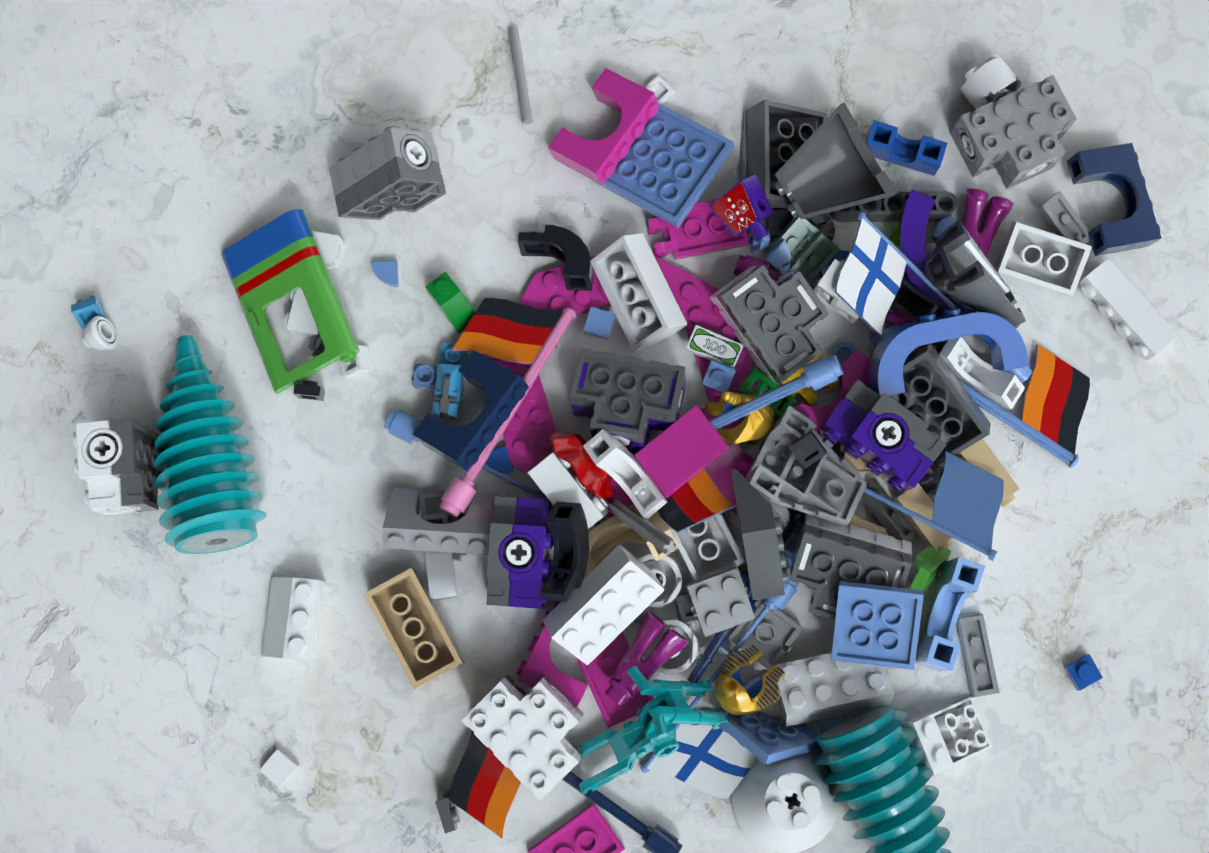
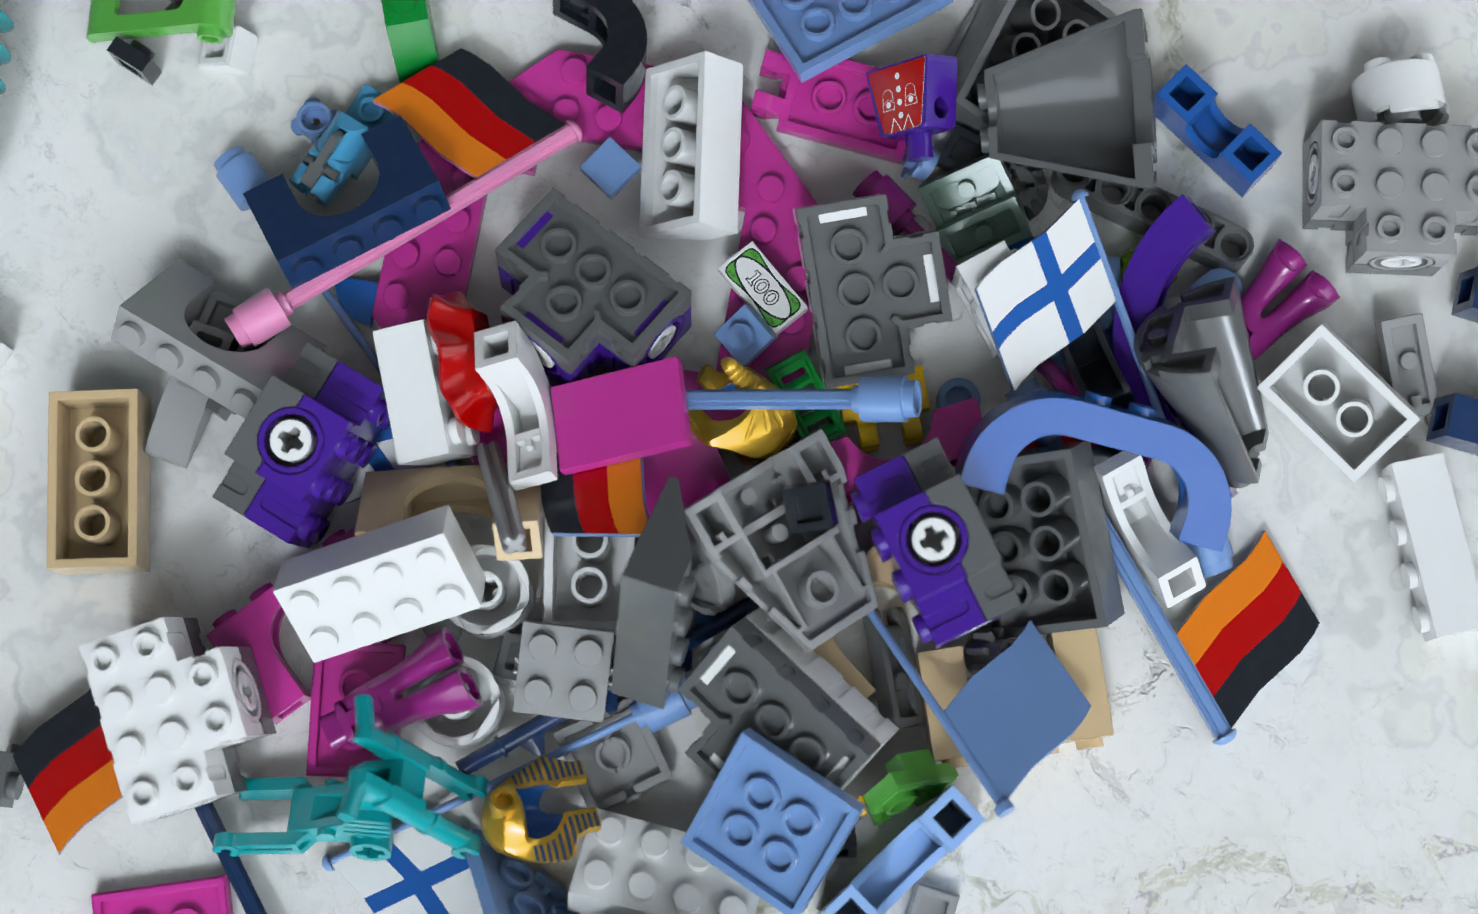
camera: 30 degrees right, 0 degrees up
(571, 551) = (372, 482): black arch -> none
(780, 256) = (936, 202): medium blue tile -> none

